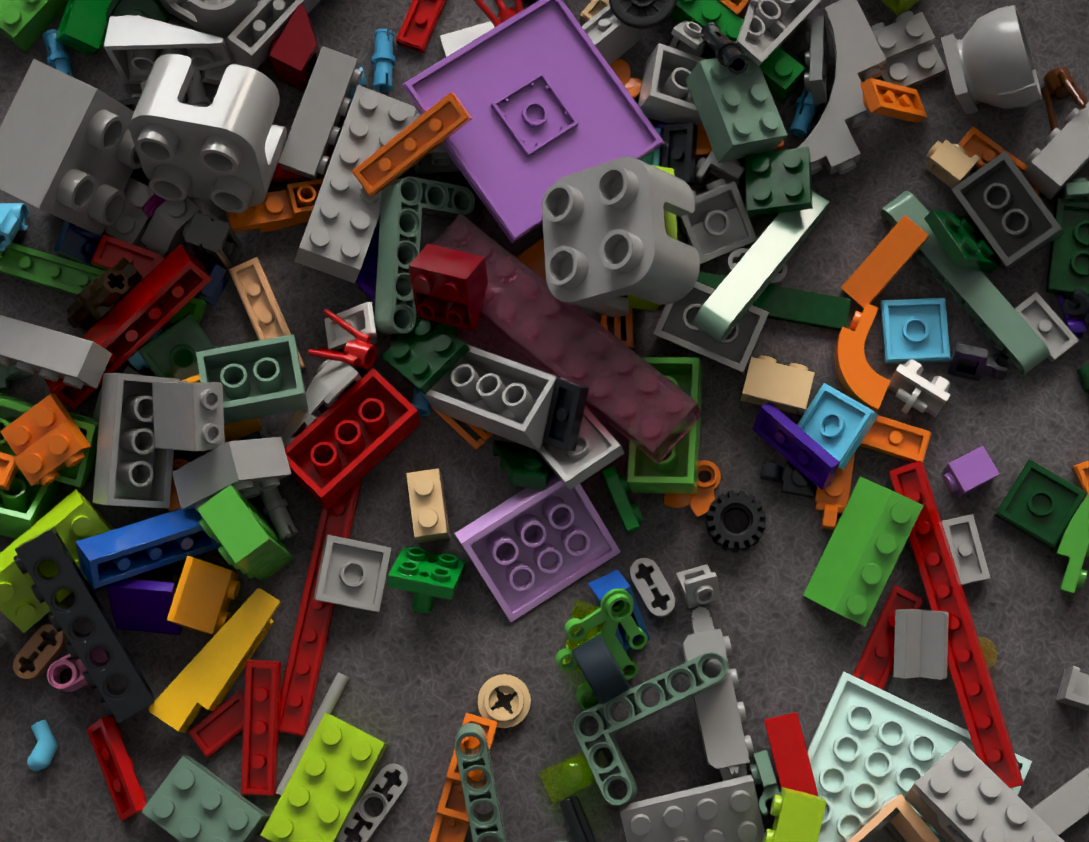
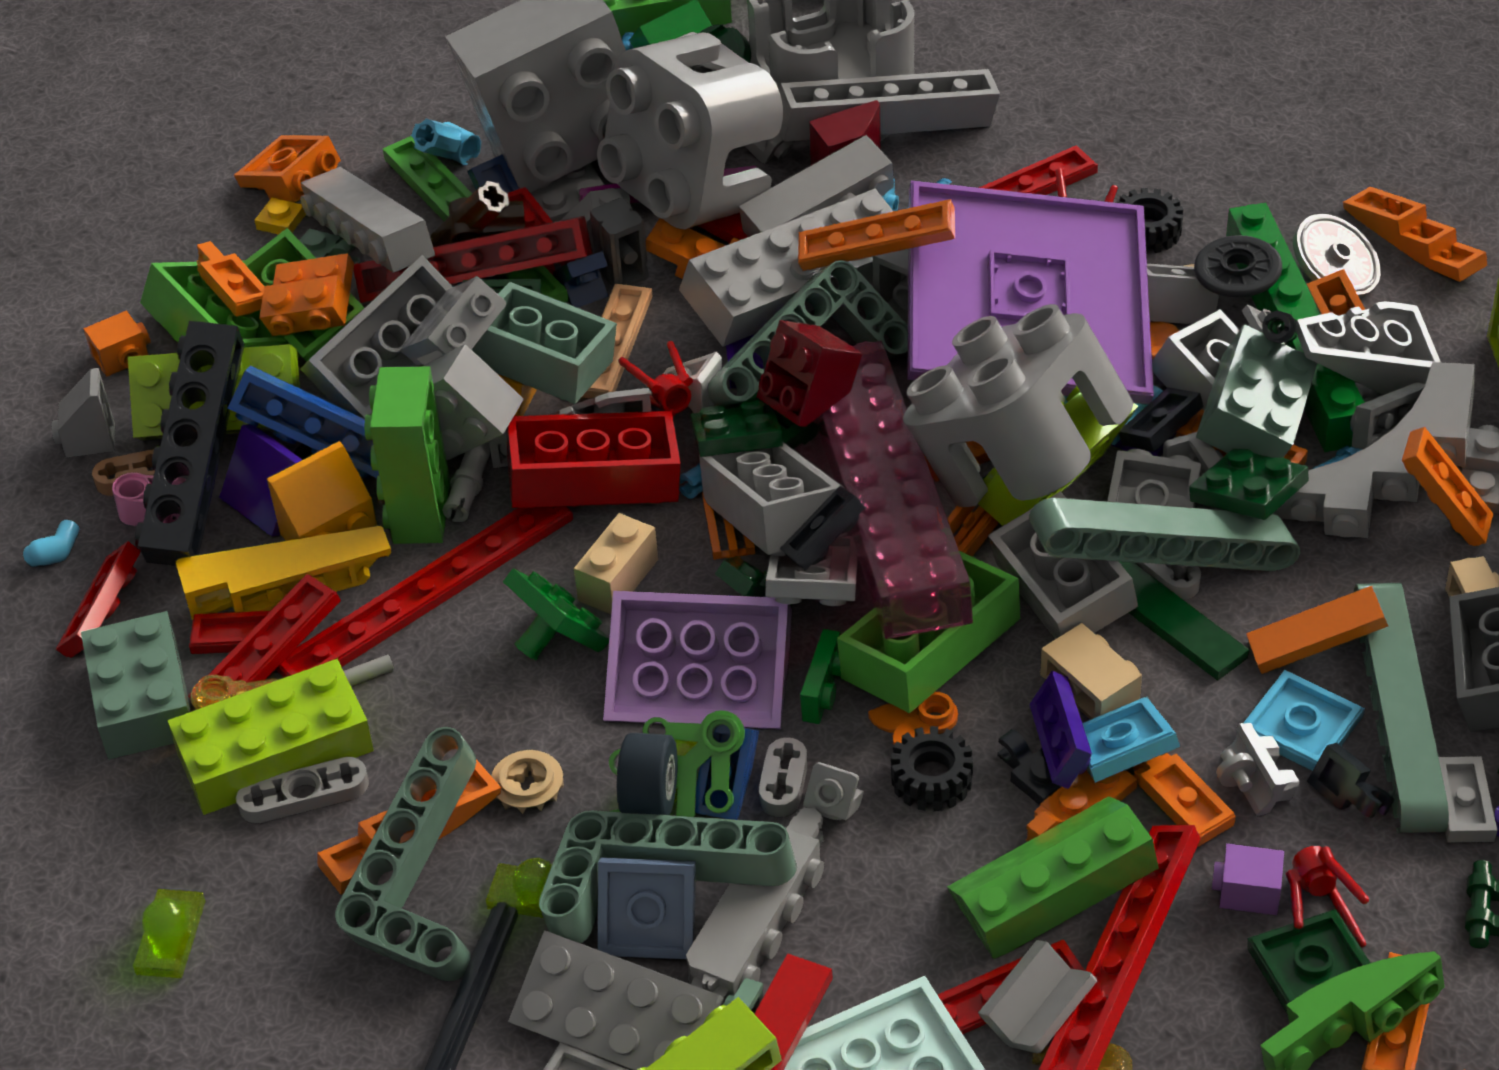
camera: 30 degrees right, 30 degrees down
(268, 788) = (216, 688): none -> clear yellow plate
(352, 573) = (474, 573): light grey plate -> none
(659, 747) = (646, 907): none -> sand blue plate
(851, 366) = (1202, 693): orange arch -> none
(962, 241) = (1423, 650): dark green plate -> none
(966, 549) = (1177, 953): light grey plate -> none
(1004, 441) = (1317, 873): none -> red plant

